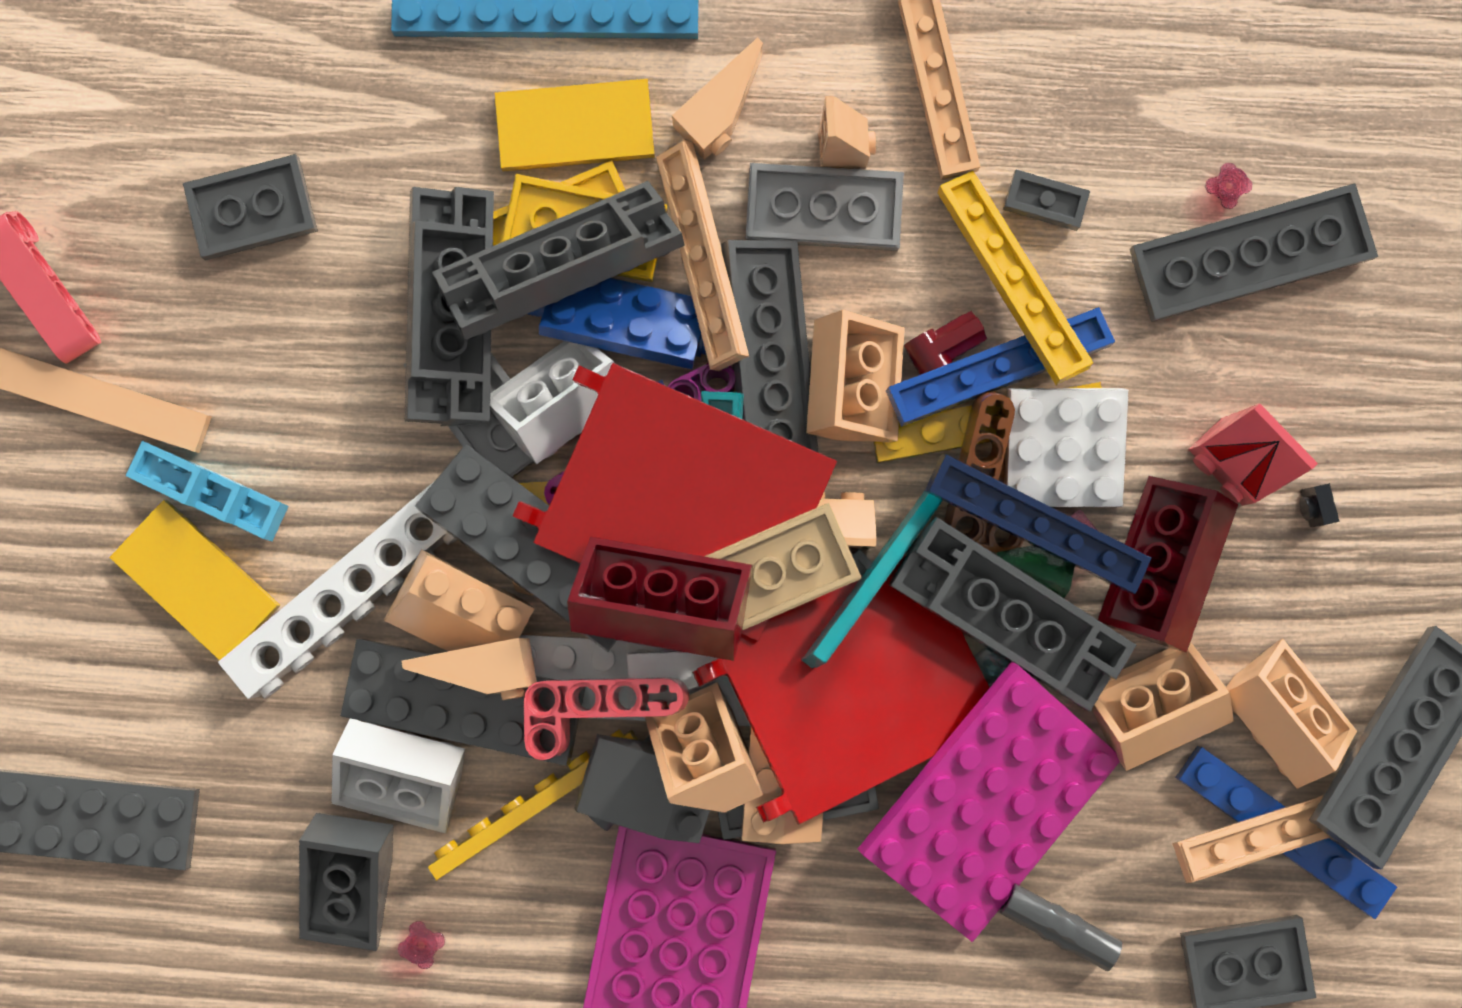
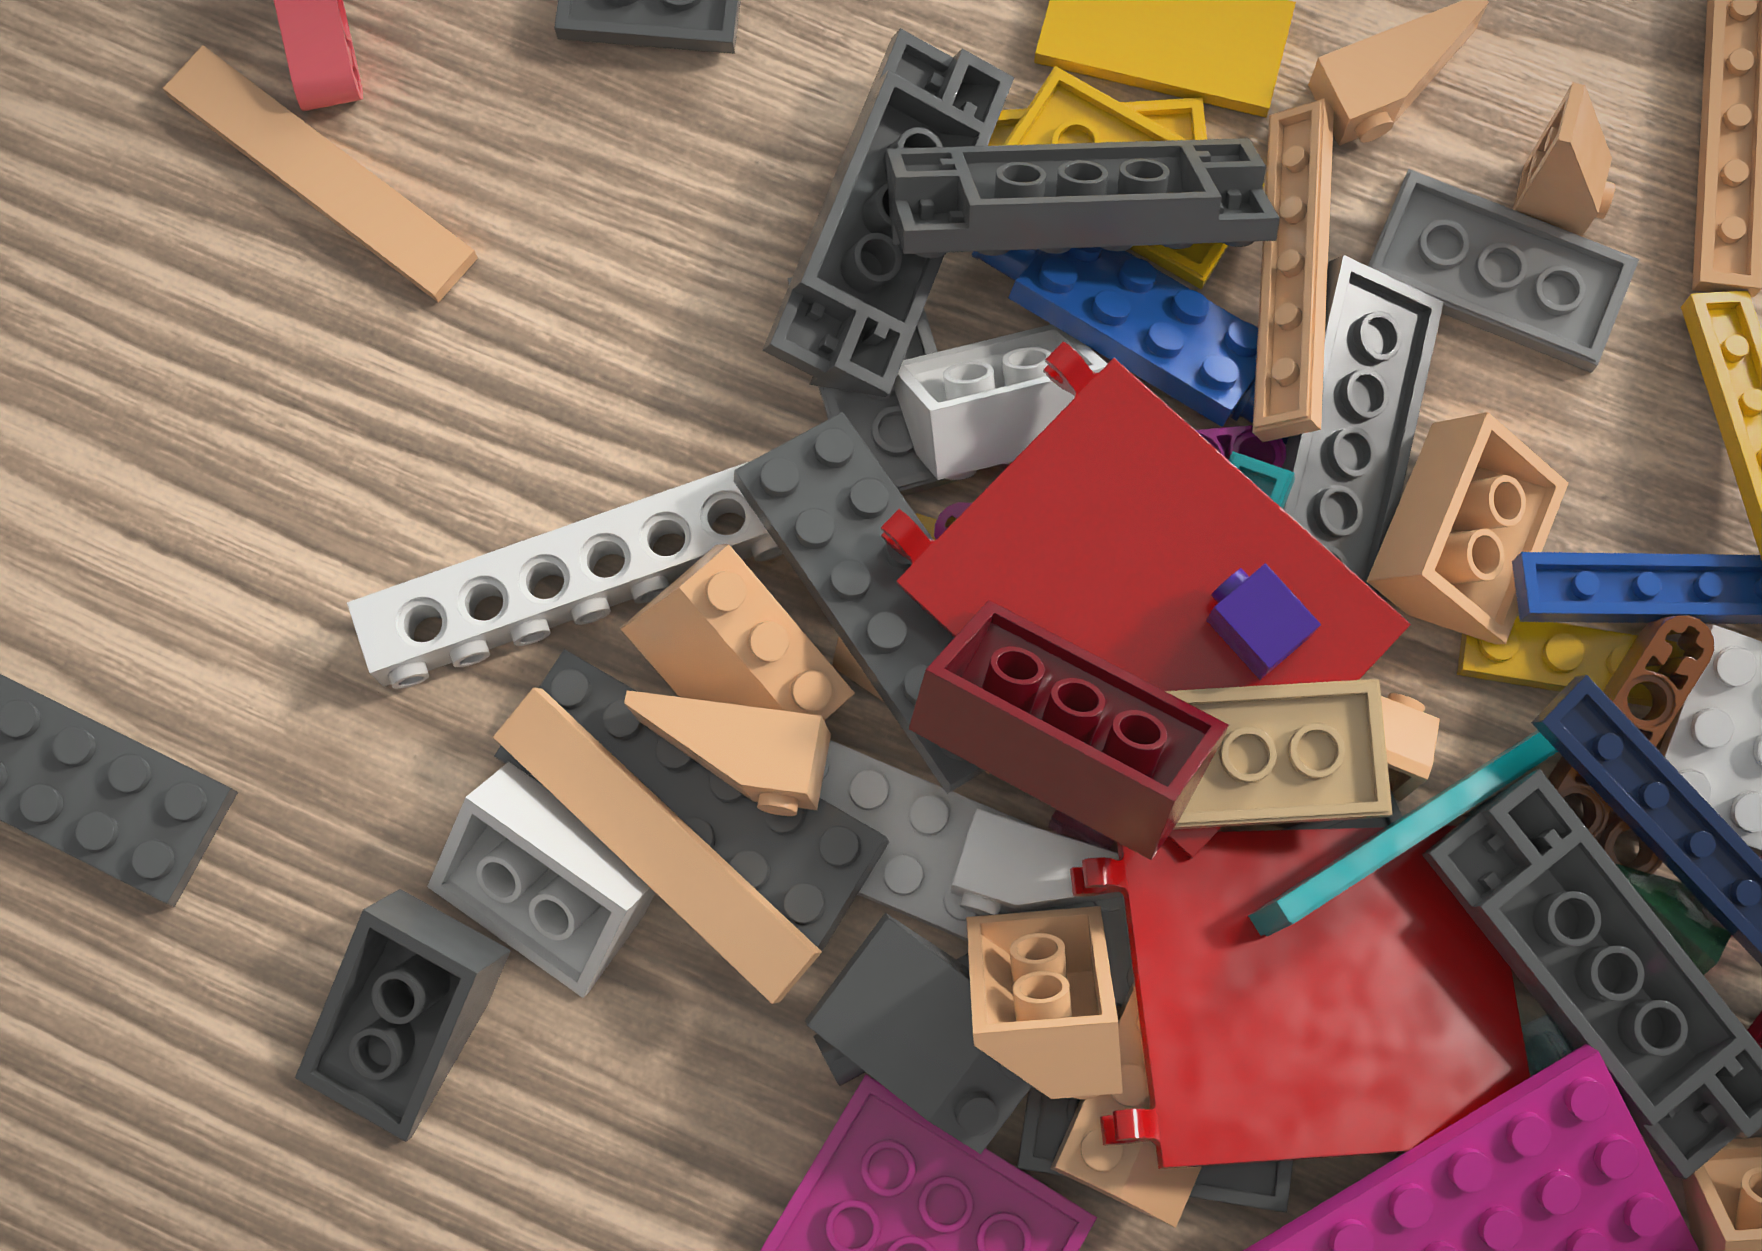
camera: 25 degrees right, 10 degrees down
(194, 580) = (356, 477): yellow tile -> none
(207, 491) = (430, 357): medium azure slope -> none
(410, 950) = (459, 1159): clear pink plate -> none
(451, 738) = (657, 845): none -> light nougat tile
(515, 813) = (705, 1004): yellow plate -> none
(606, 705) = (915, 872): coral beam -> none
(749, 493) = (1260, 619): none -> dark purple brick
(943, 345) = (1628, 526): dark red piece -> none

